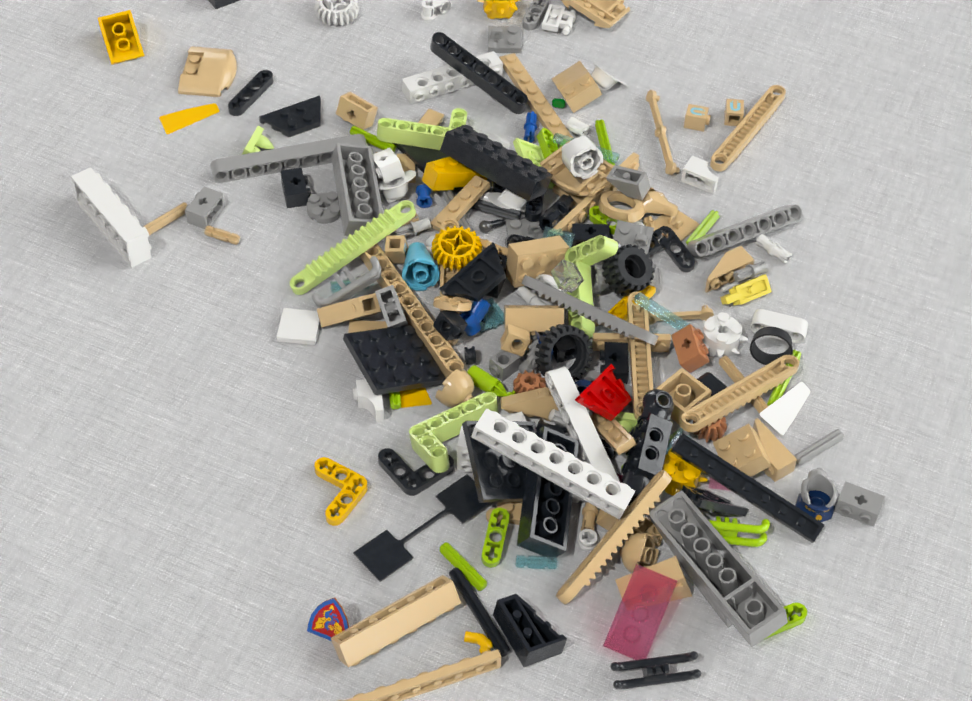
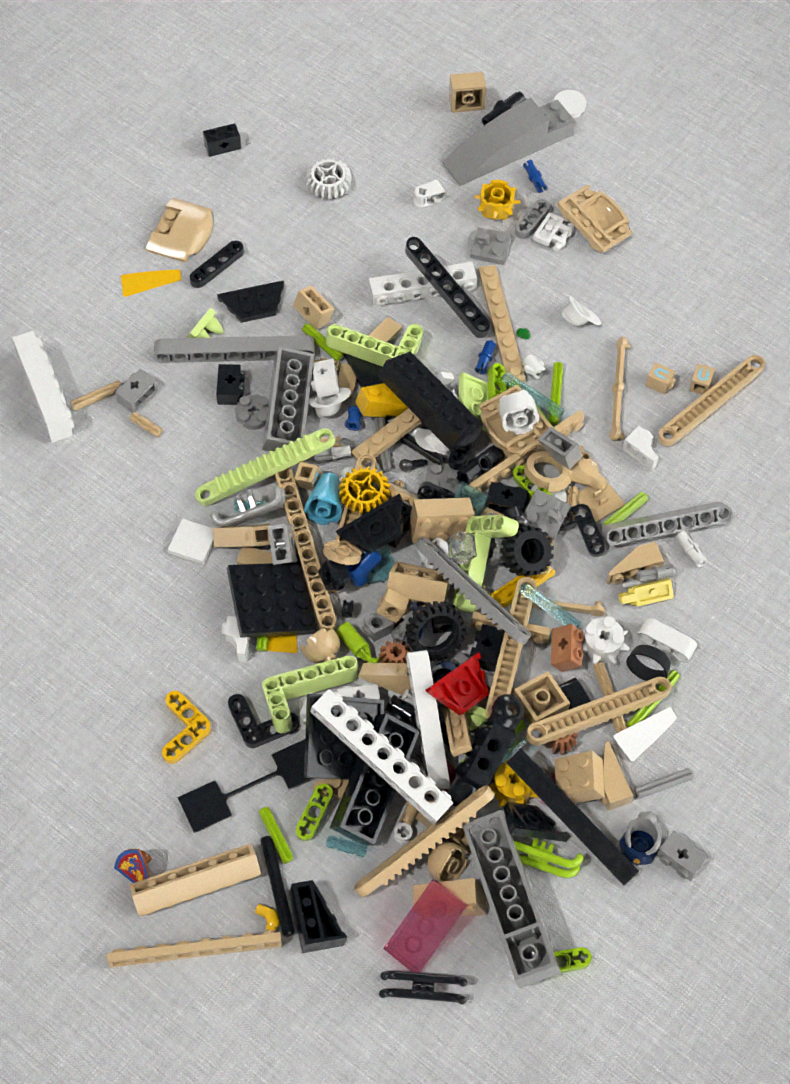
camera: 15 degrees right, 10 degrees up
(120, 37) = (105, 177): yellow slope -> none
(577, 86) = (545, 318): tan slope -> none

